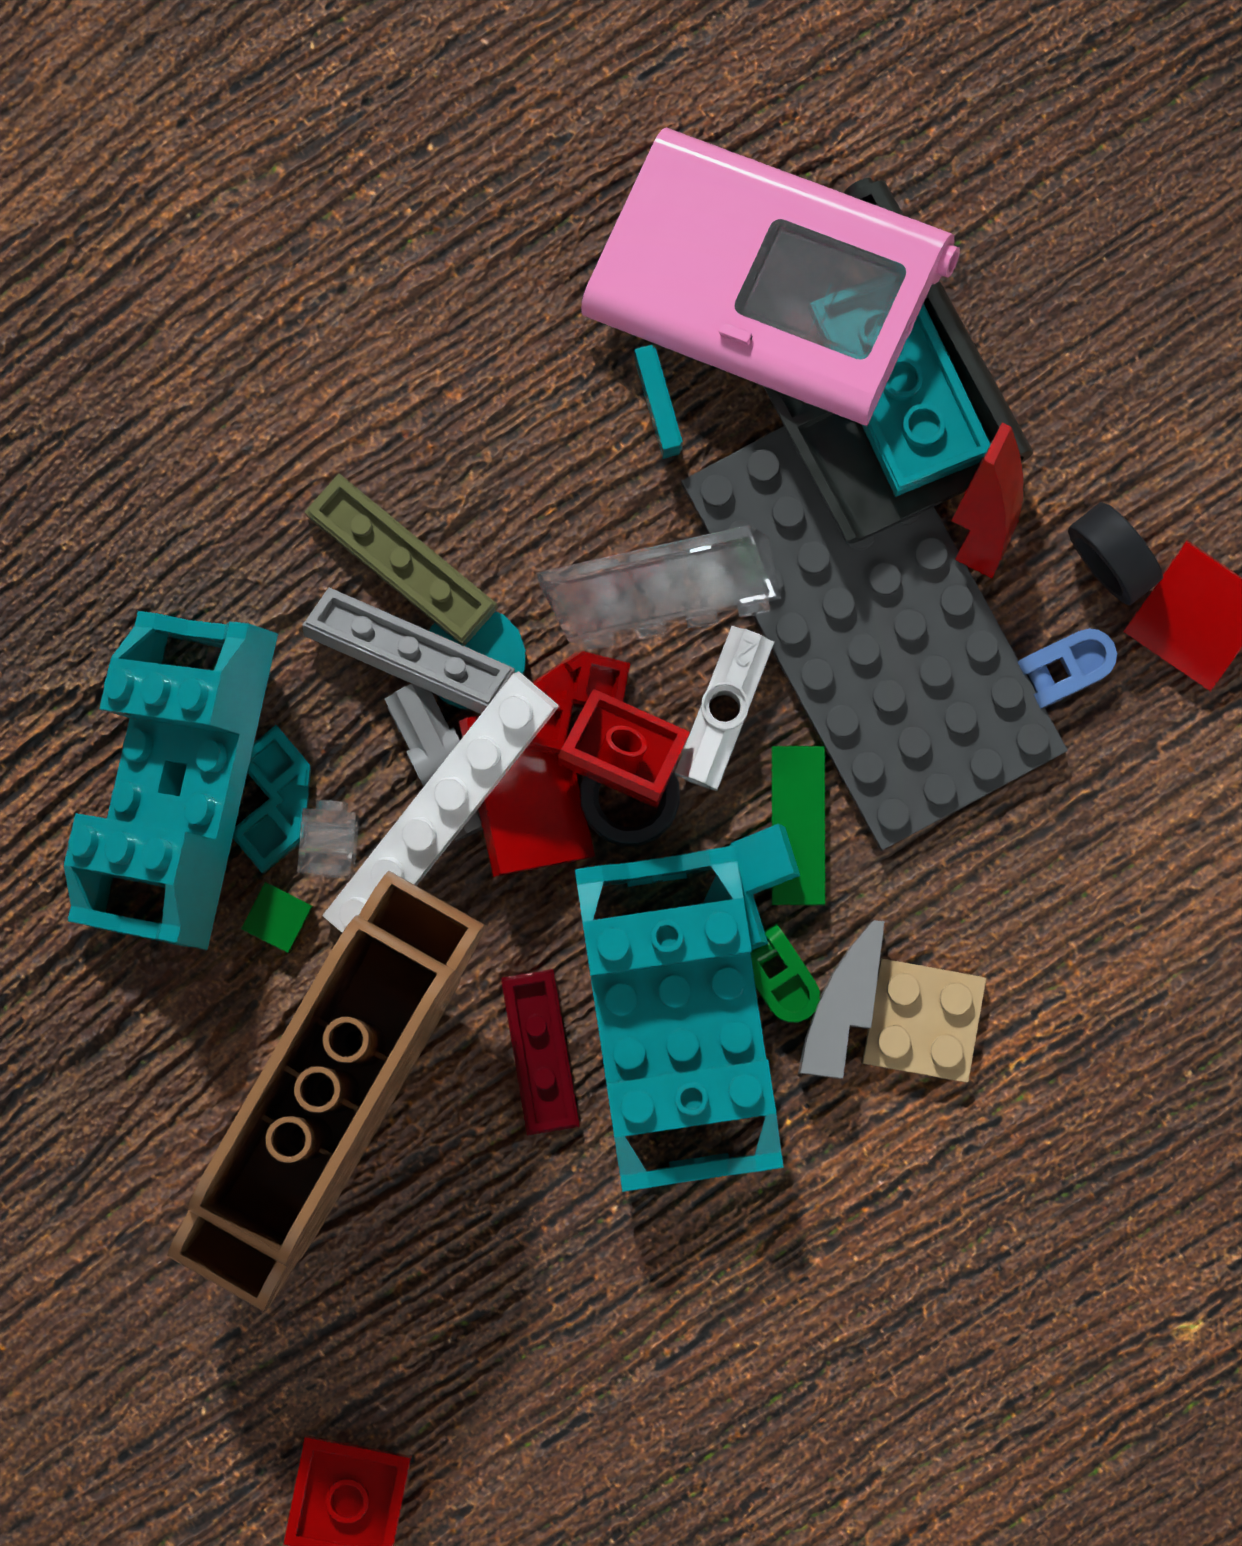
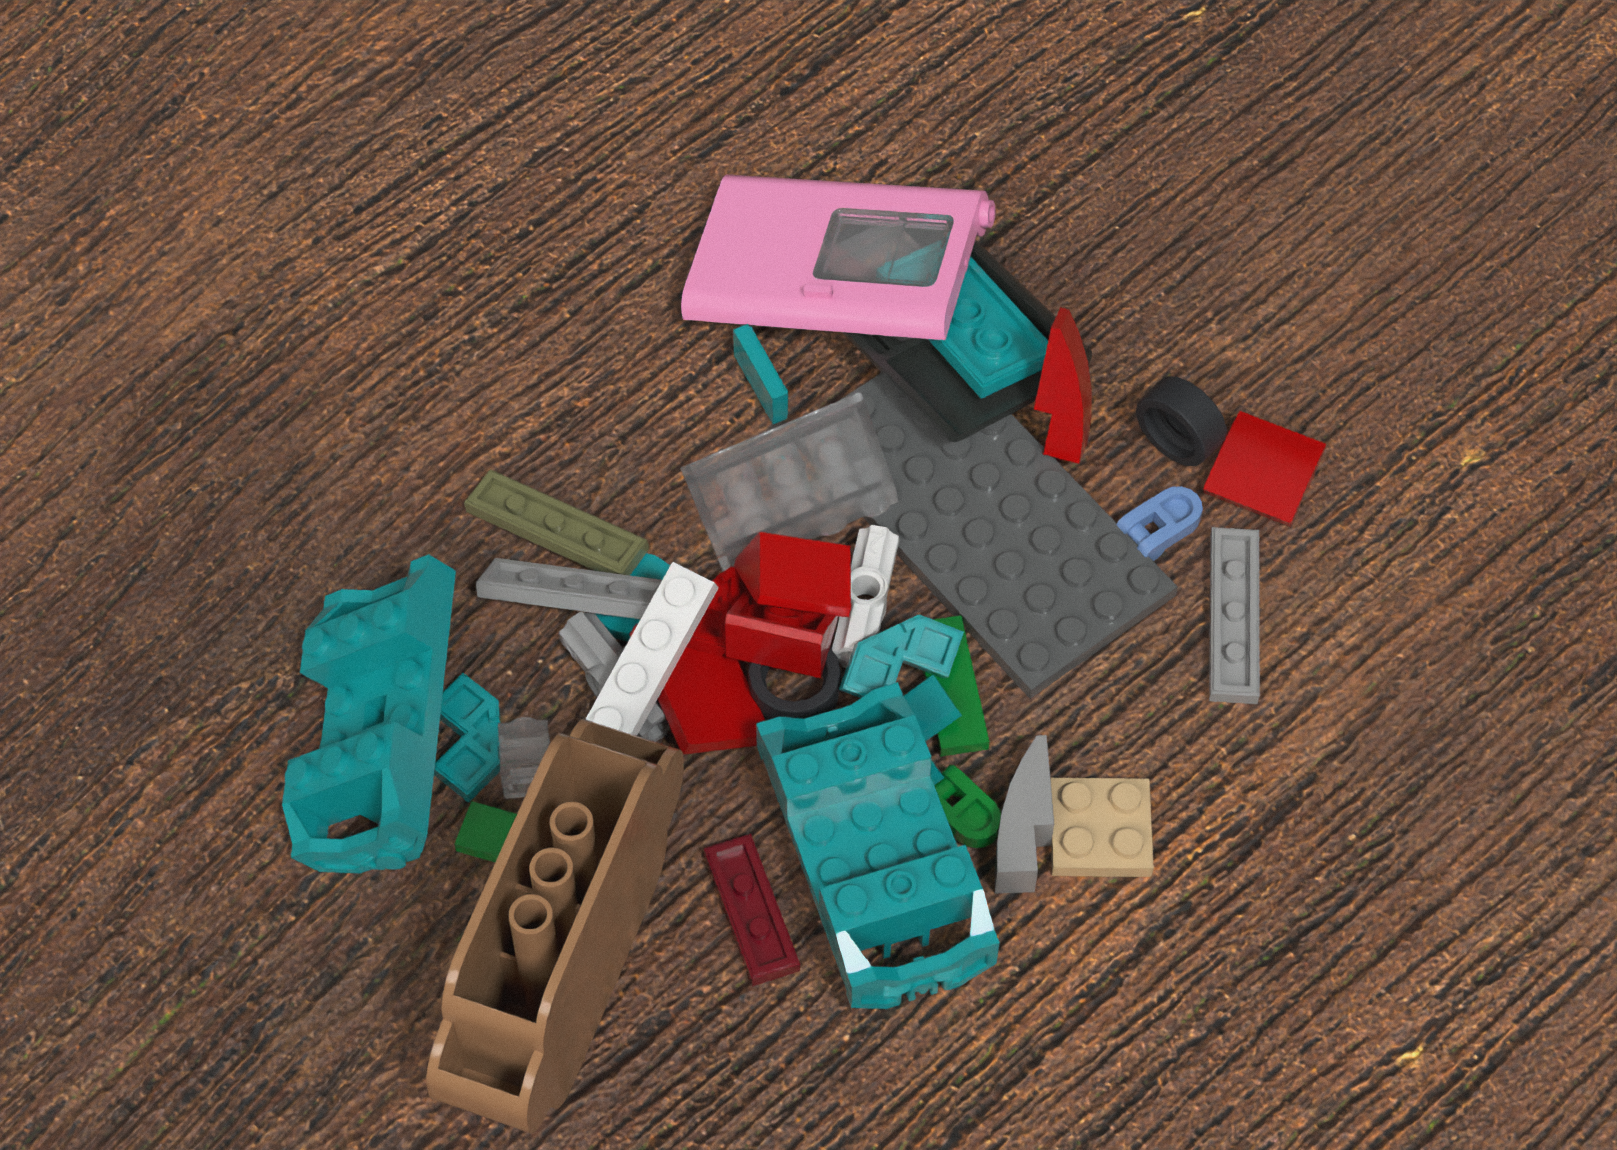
camera: 10 degrees left, 25 degrees down
(649, 694) = (797, 573): none -> red slope
(724, 795) = (914, 642): none -> teal tile
(1123, 790) = (1234, 616): none -> light grey tile

